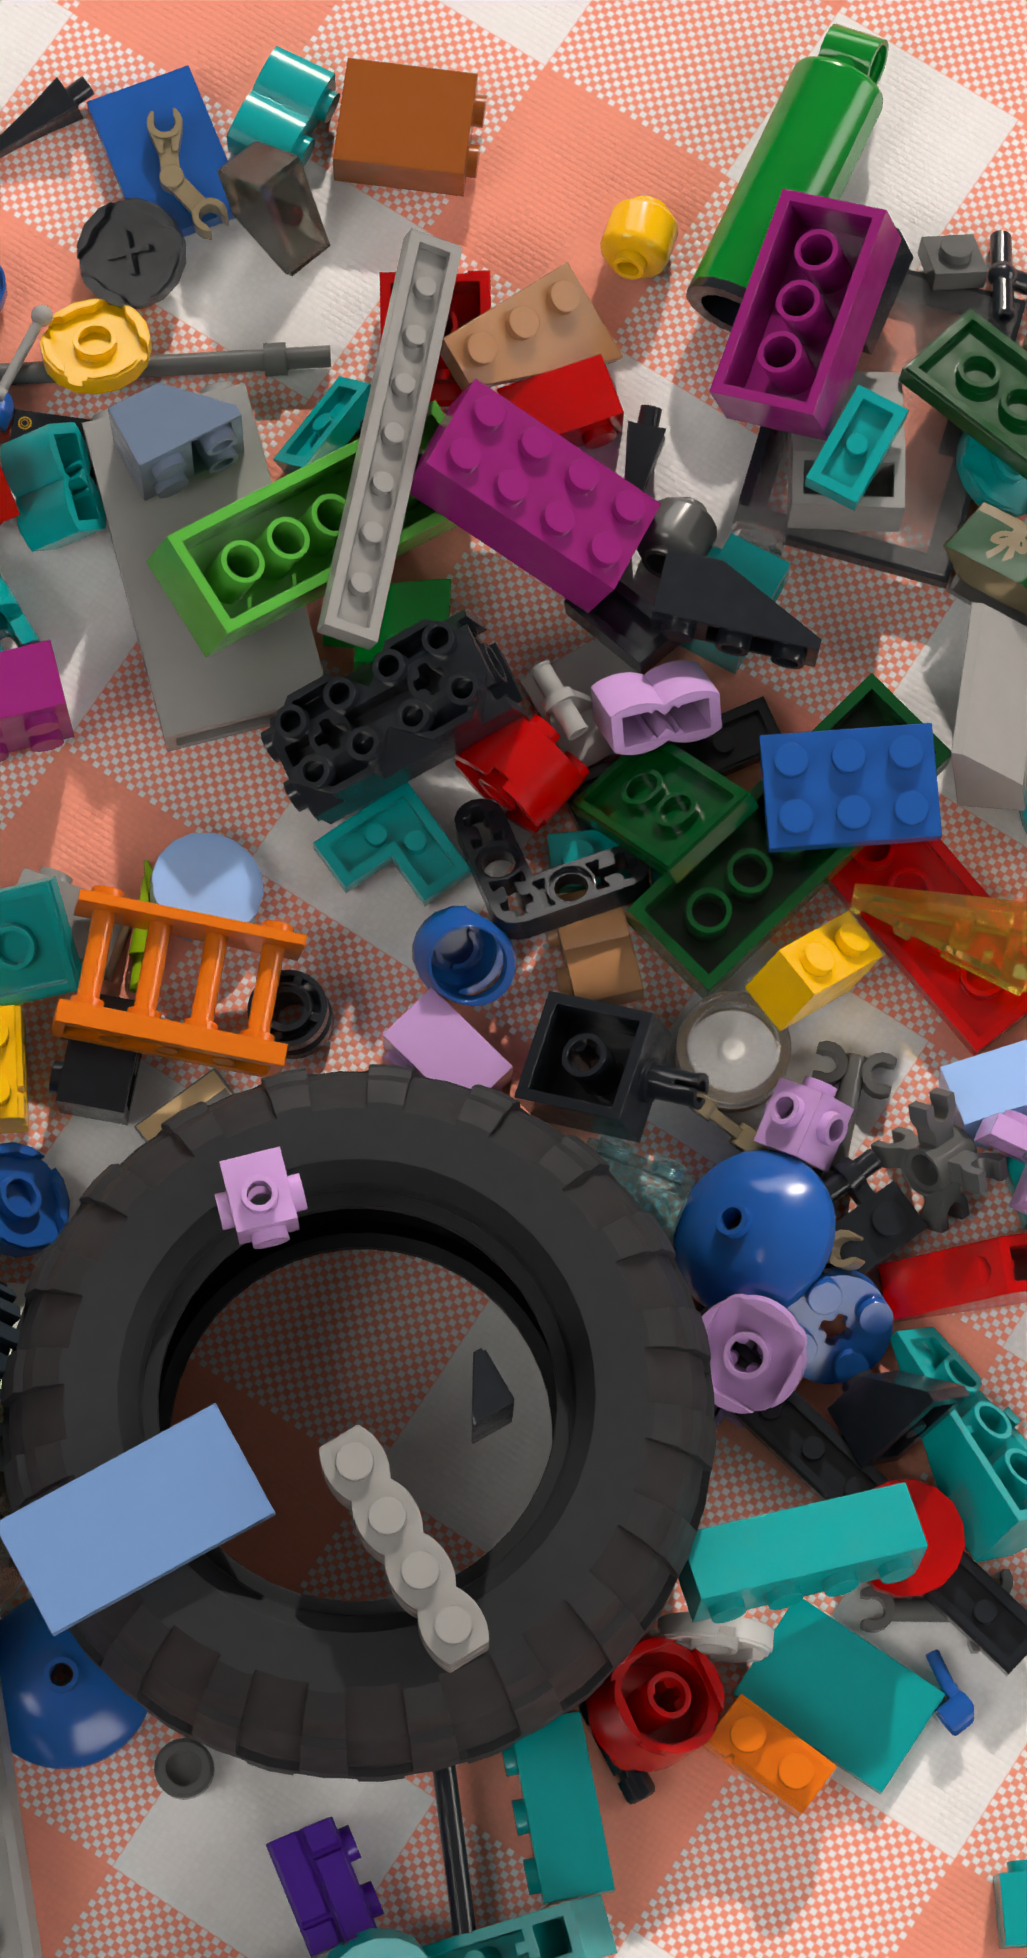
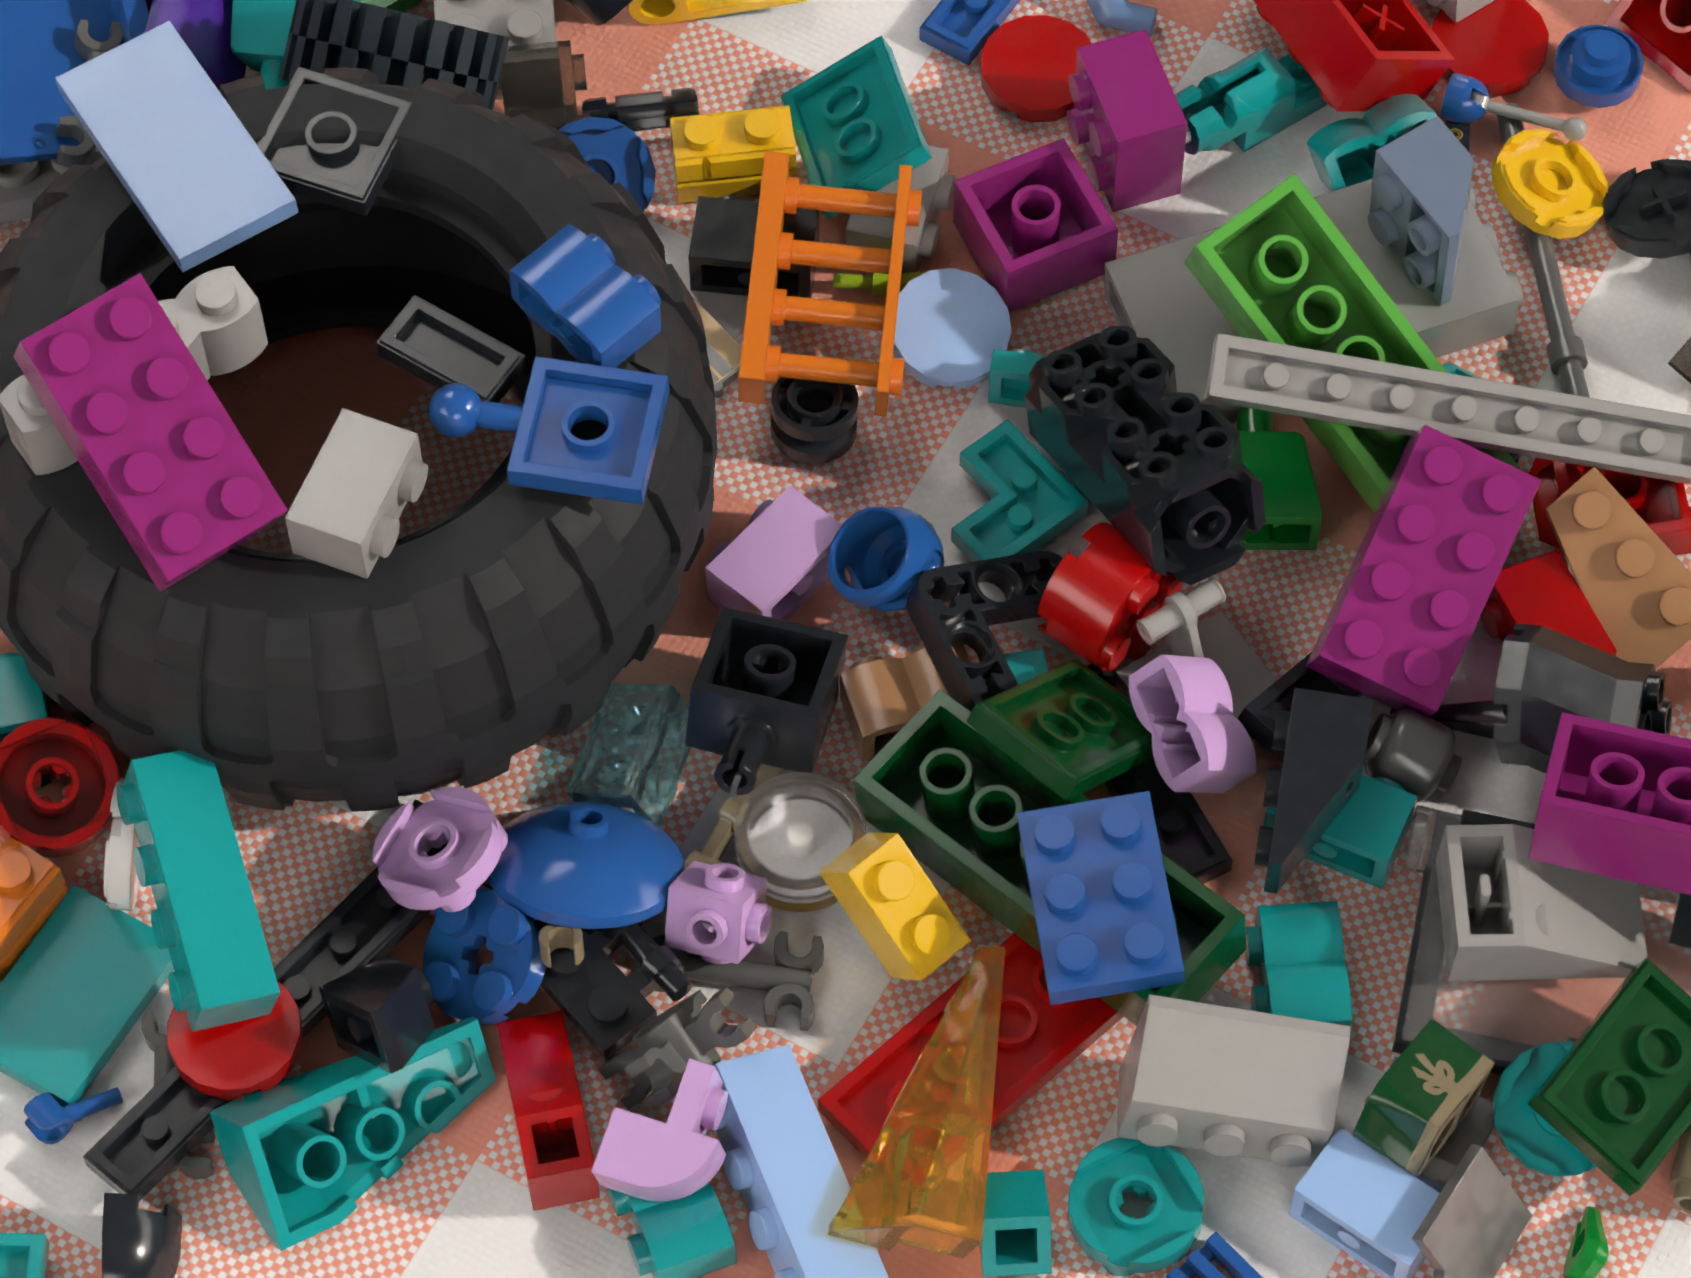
camera: 90 degrees right, 15 degrees down
(110, 798) = (1034, 224): none -> magenta brick
(156, 1383) = (334, 173): none -> tile
(258, 1177) = (510, 211): lavender brick -> none
(266, 826) = (1010, 376): none -> teal plate
(351, 1137) = (586, 299): none -> blue brick
(391, 1266) = (449, 351): none -> black tile
(490, 1398) = (290, 417): black slope -> none
(503, 1182) = (555, 401): none -> blue plate
(506, 1519) = (149, 432): none -> magenta brick
(549, 1347) = (356, 494): none -> light grey brick
(666, 387) = (1555, 674): none -> black brick
(856, 447) = (1520, 878): teal plate -> none
(888, 643) = (1300, 962): none -> teal brick

